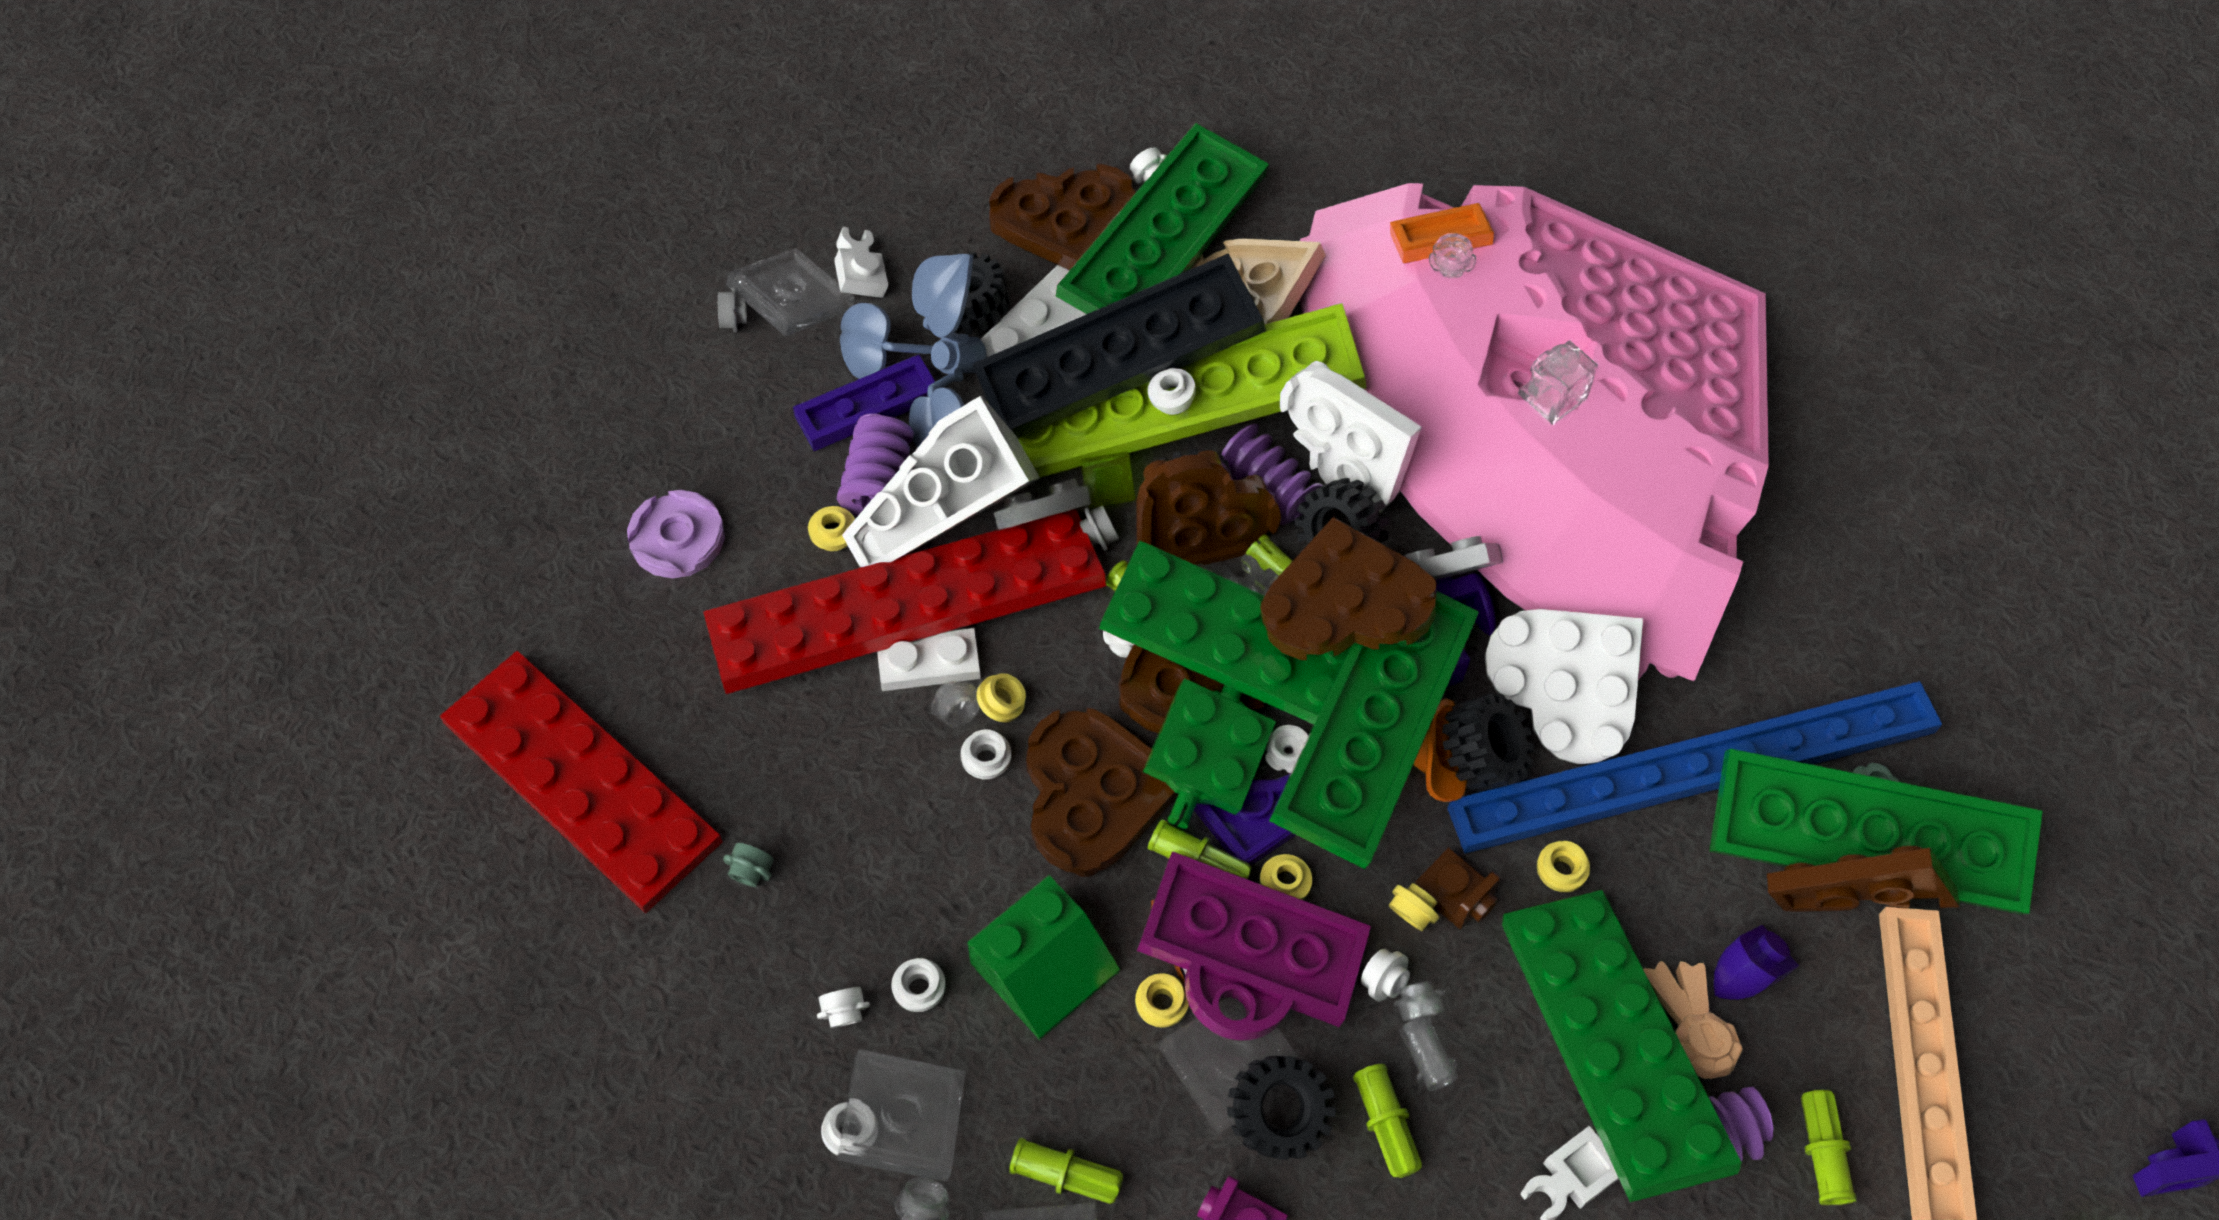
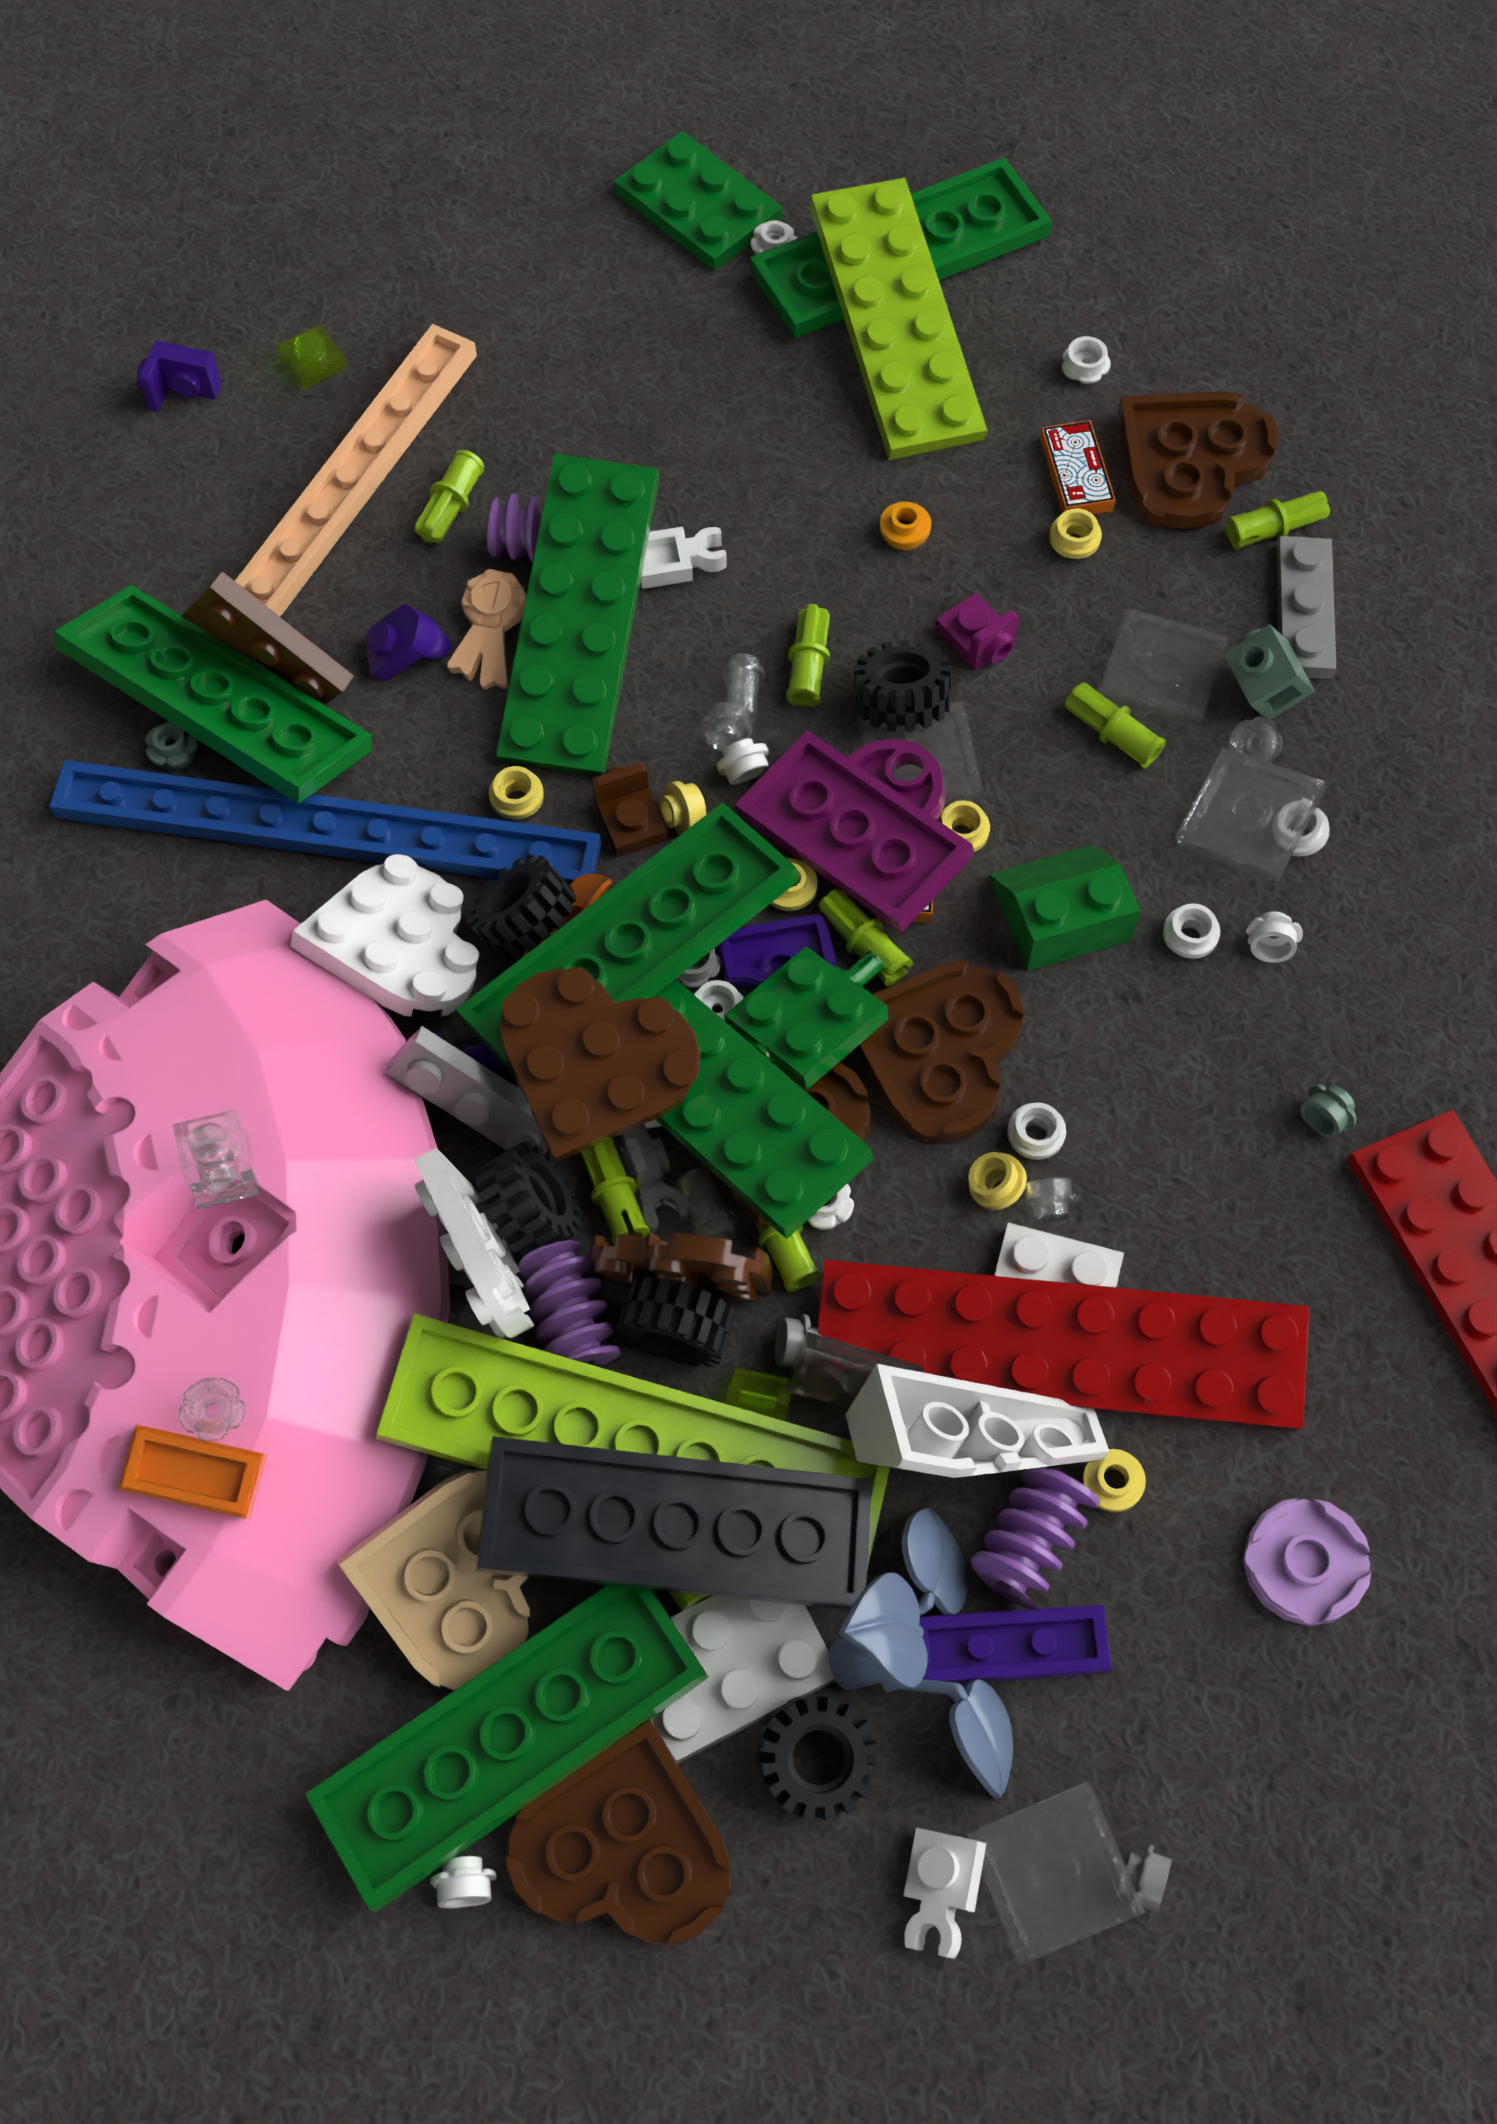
camera: 155 degrees left, 5 degrees up
(1176, 400) = (627, 1433): white plate -> none

